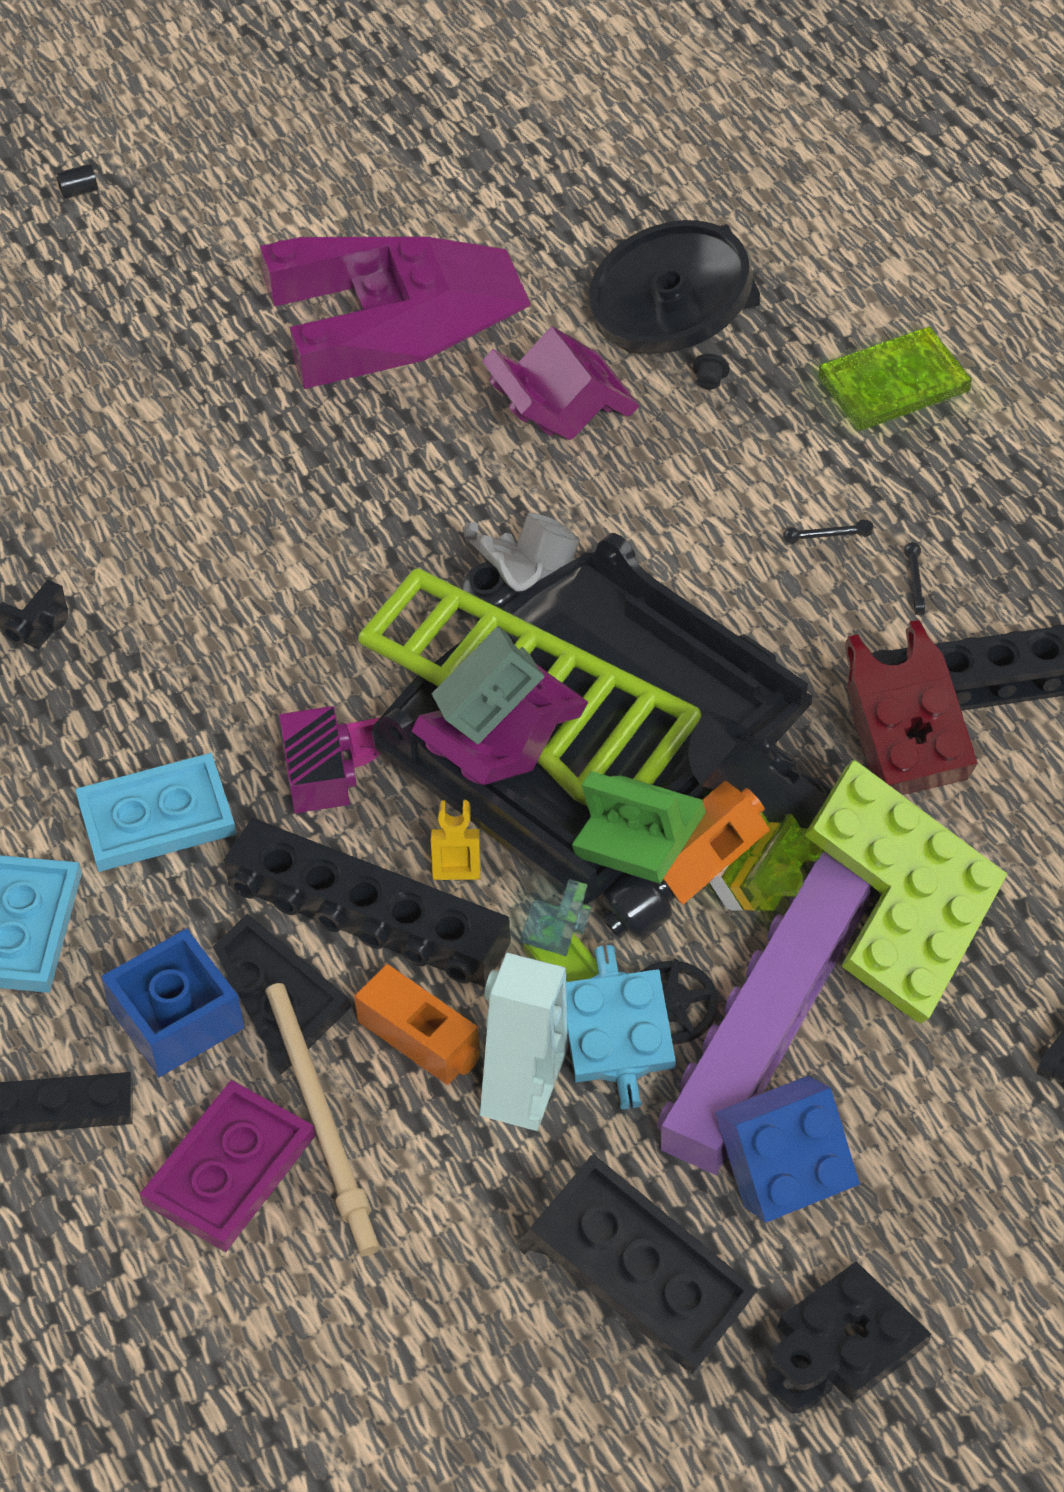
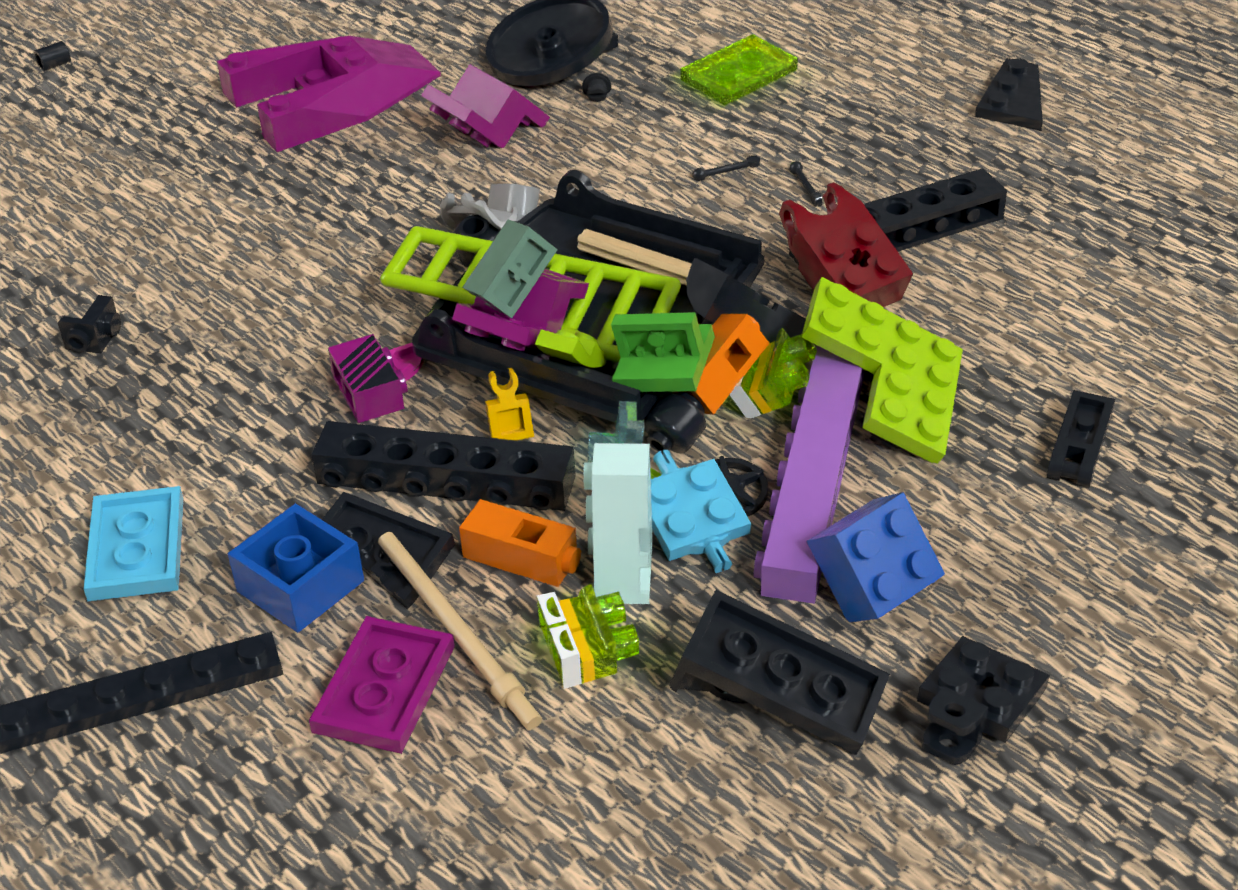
camera: 15 degrees left, 10 degrees down
(155, 812) = (237, 441): medium azure plate -> none
(444, 1159) = (581, 636): none -> clear neon green hips
(541, 793) = (571, 347): none -> lime slope
(669, 668) = (632, 255): none -> tan axle

